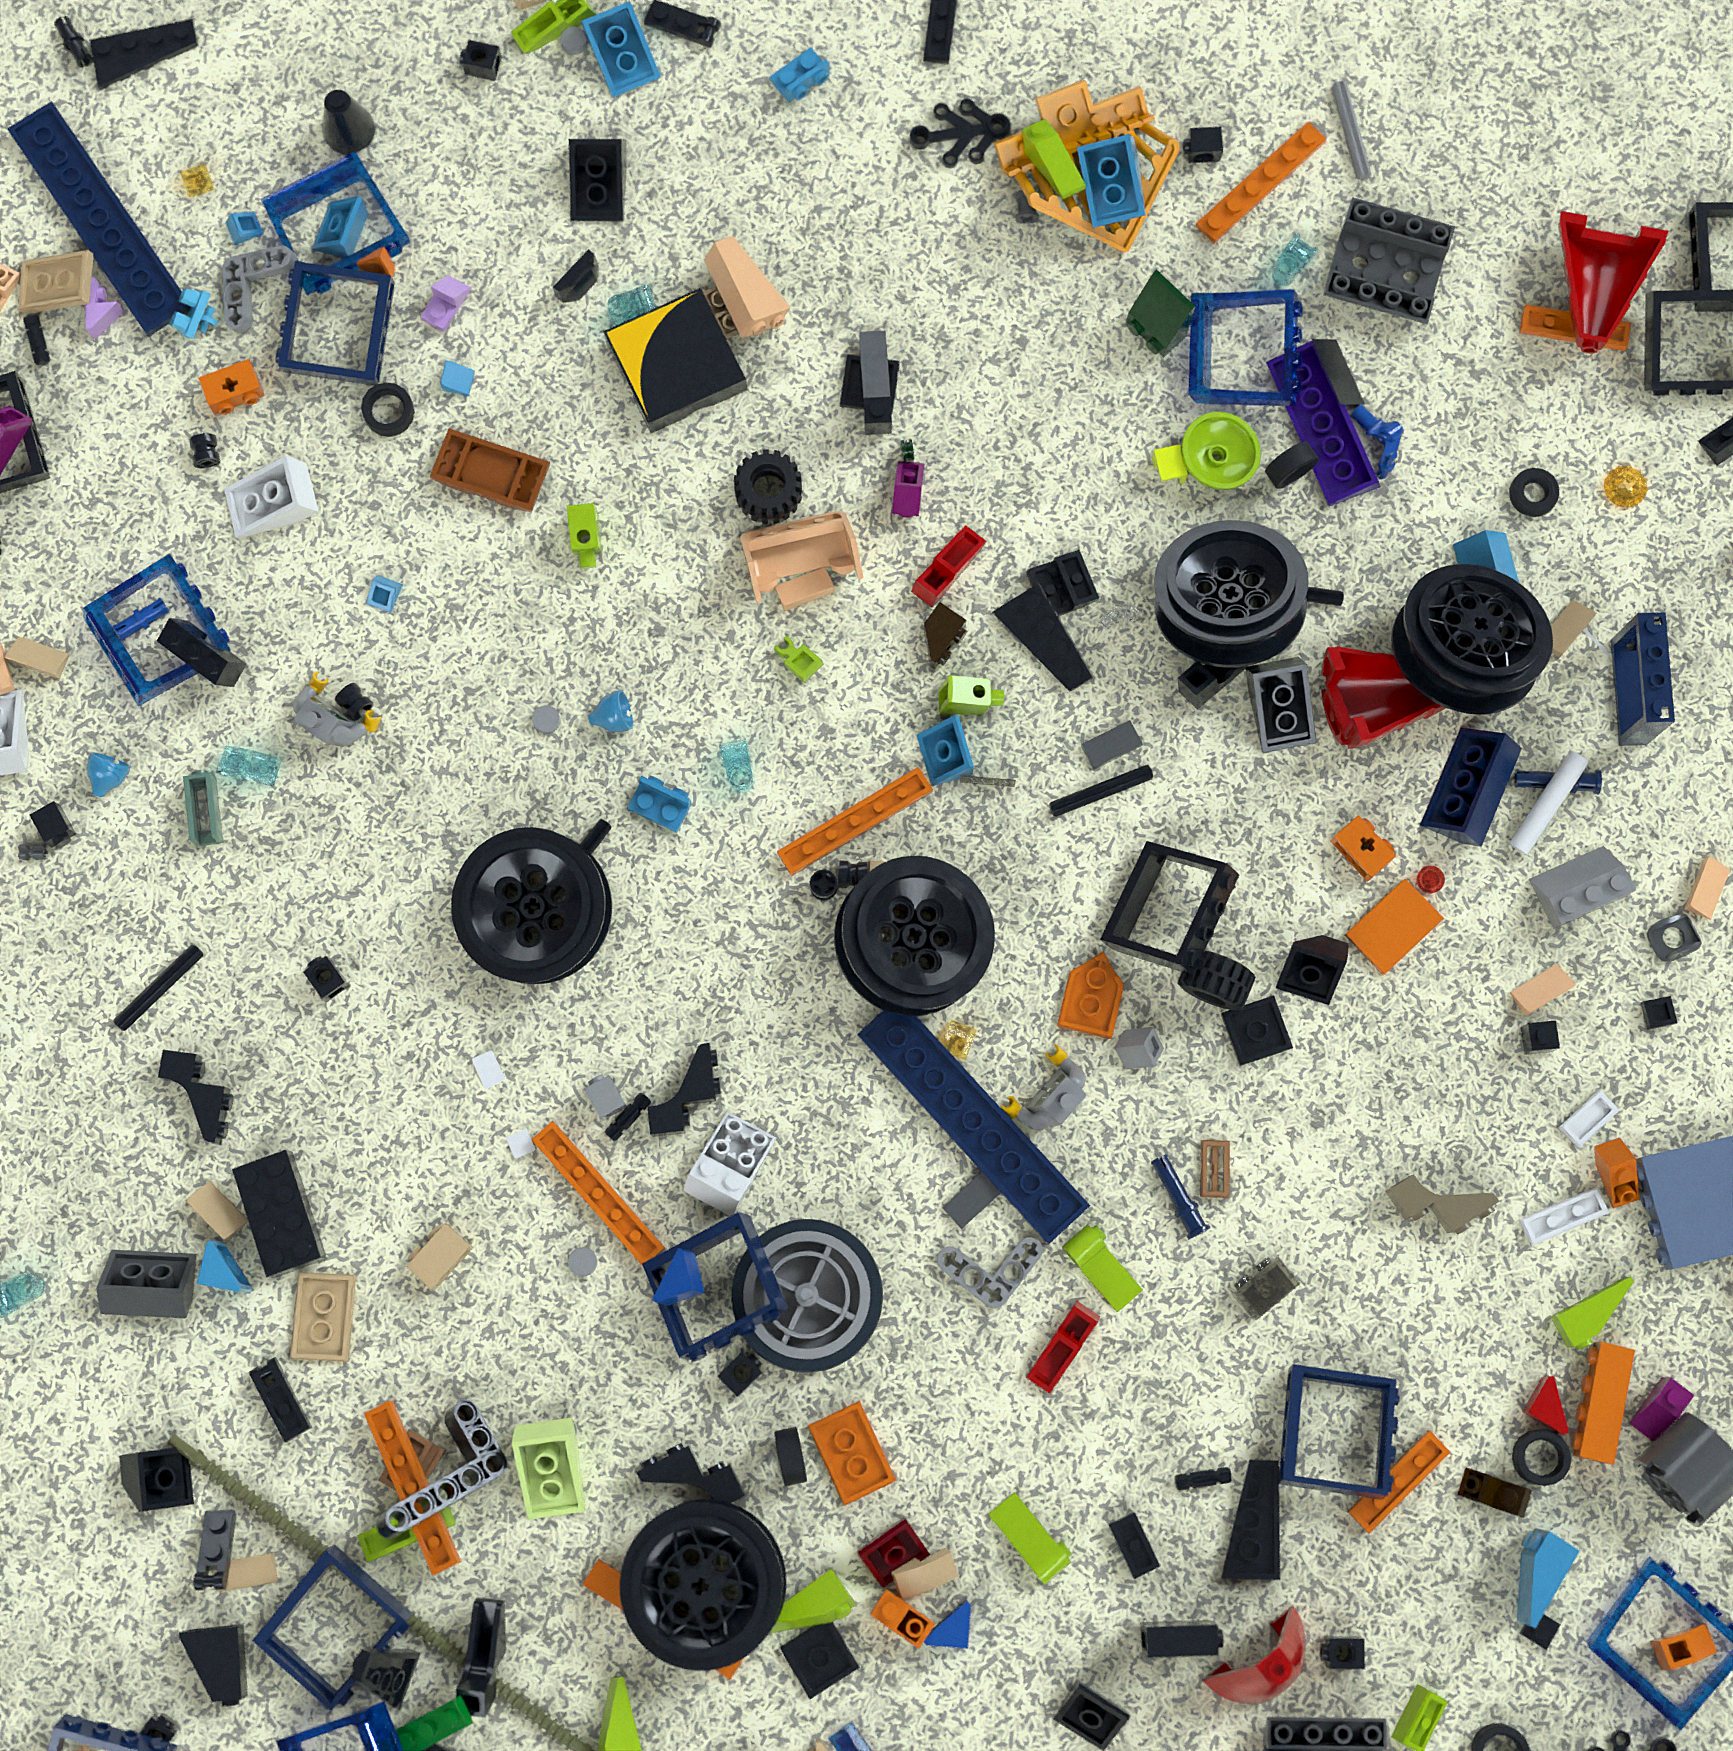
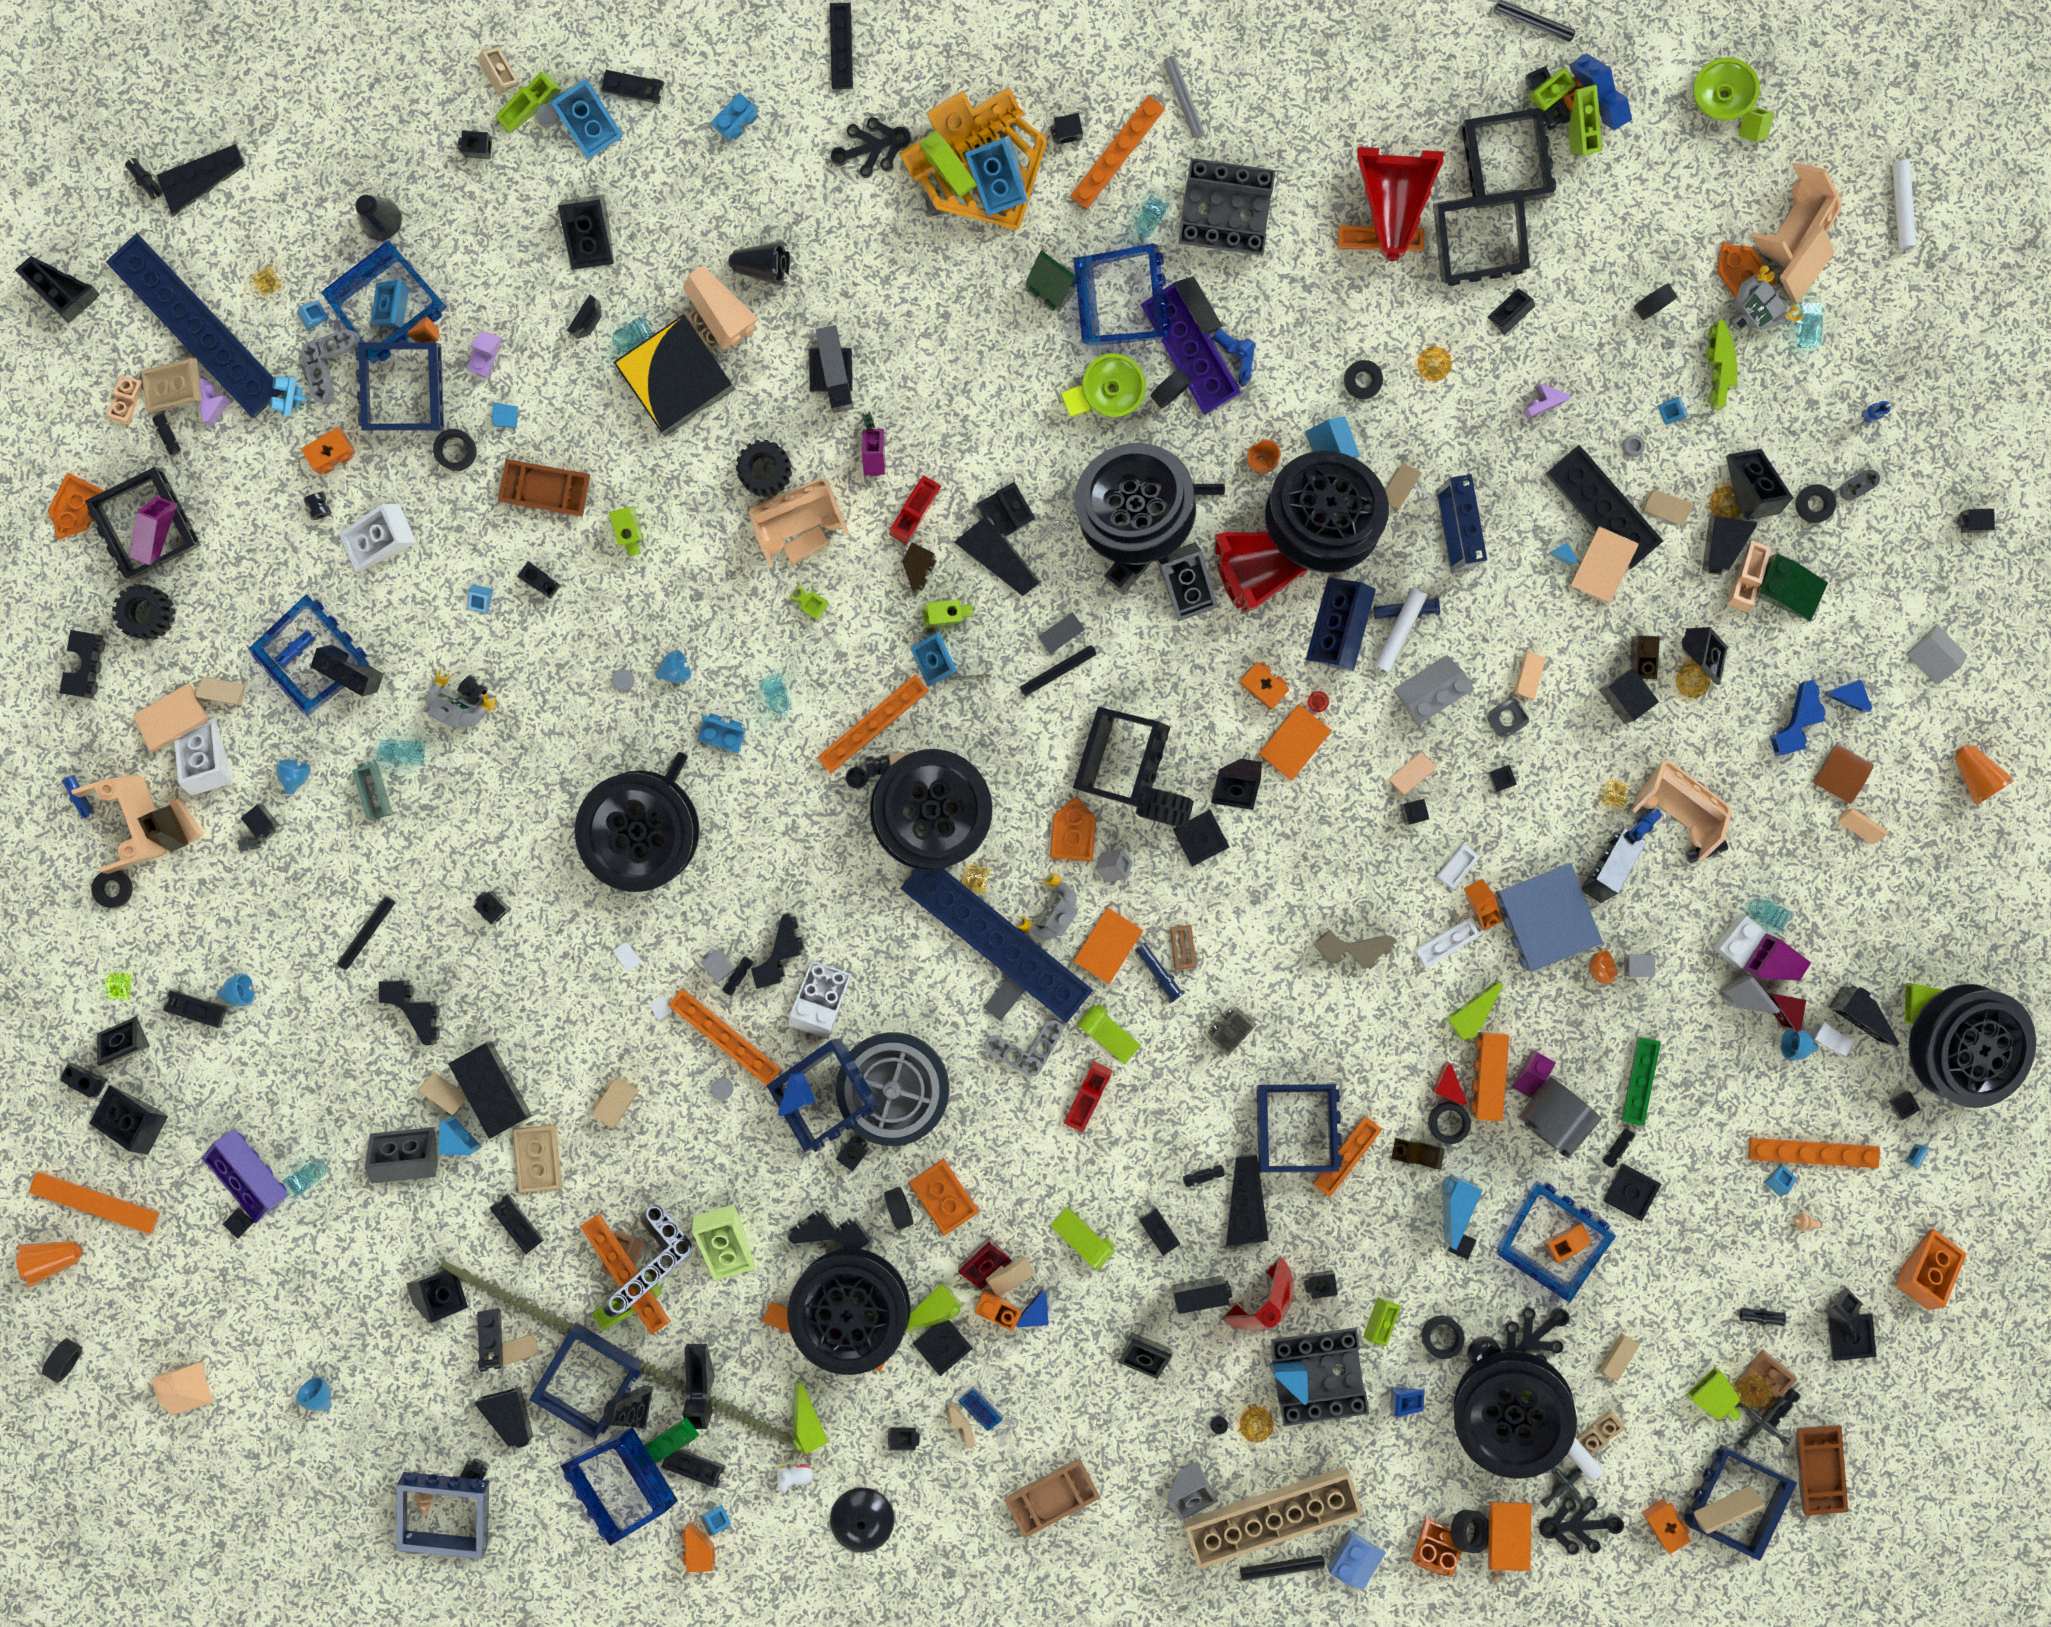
camera: 10 degrees left, 10 degrees up
(462, 579) = (538, 580): none -> black leg
(806, 243) = (762, 262): none -> black cone
(1117, 1151) = (1108, 945): none -> orange tile
(1401, 558) = (1271, 456): none -> orange hair

